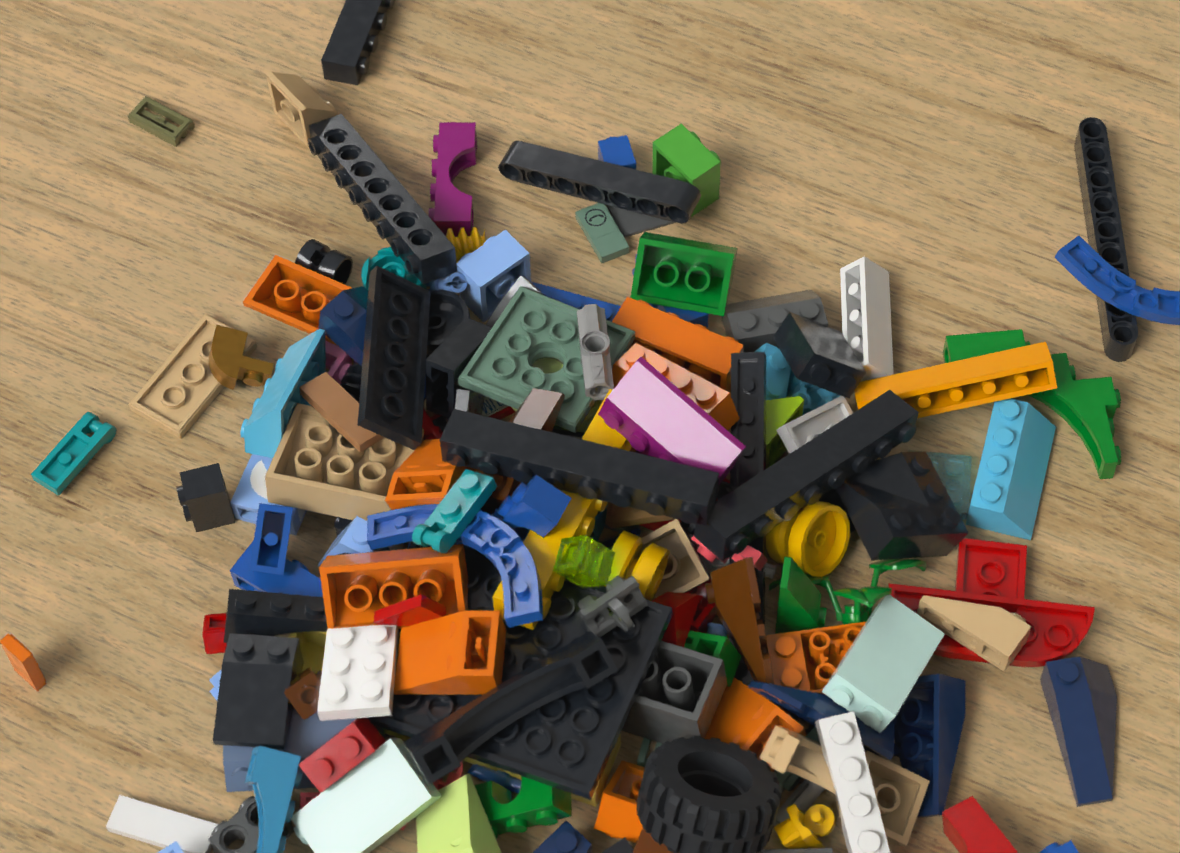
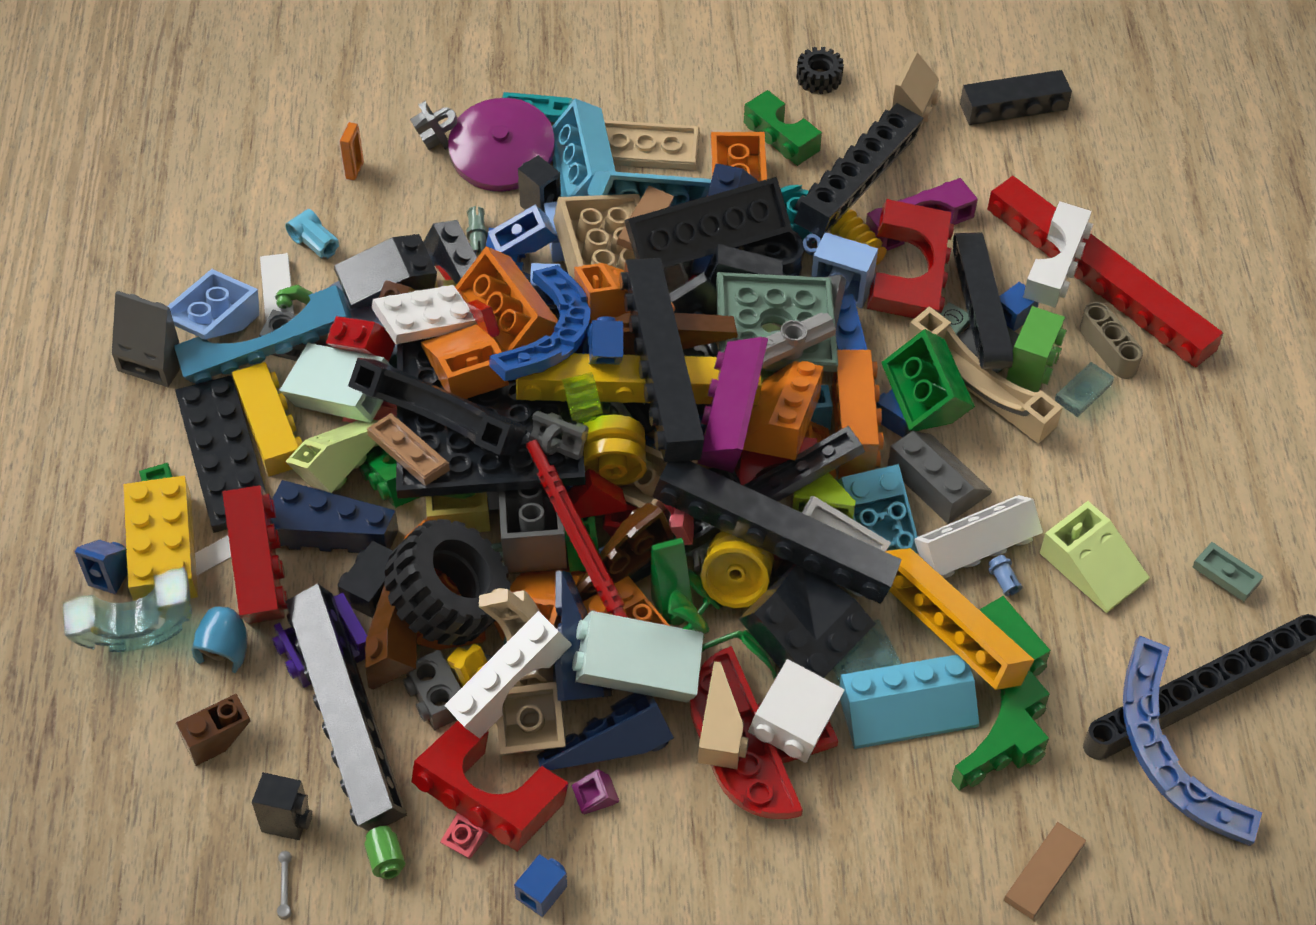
camera: 60 degrees right, 5 degrees down
(40, 569) = (428, 127): none -> dark grey hips
(98, 759) = (309, 230): none -> medium azure piece
(105, 509) = (496, 140): none -> magenta dish
(158, 125) = (847, 43): olive tile -> none
(176, 437) = (580, 147): none -> medium azure slope
(190, 819) = (285, 296): none -> bright green arm
(199, 158) = (820, 60): none -> black tyre
(213, 587) = (476, 232): none -> sand green pin
(228, 362) = (665, 148): pearl gold brick -> none
(240, 251) = (793, 141): none -> green arch
(322, 260) = (785, 164): black wheel -> none
(455, 511) = (577, 301): teal plate -> none
(501, 180) = (929, 232): none -> red arch
(540, 760) = (408, 449): none -> medium nougat tile
(571, 69) = (1049, 276): none -> white arch
(613, 72) = (1111, 276): none -> red brick
(700, 108) = (1111, 340): none -> dark tan beam
(729, 647) = (577, 532): none -> red axle
(742, 158) = (1084, 389): none -> clear light blue plate
(747, 213) = (1027, 410): none -> tan arch
(819, 355) = (912, 506): black brick -> none
(912, 326) = (1004, 574): none -> medium blue pin
(933, 247) = (1094, 557): none -> yellowish green slope
(978, 781) = (595, 792): none -> magenta slope
(993, 560) = (796, 711): none -> white brick
(997, 158) = (1227, 571): none -> sand green plate
(1084, 720) = (702, 846): dark blue wedge -> none

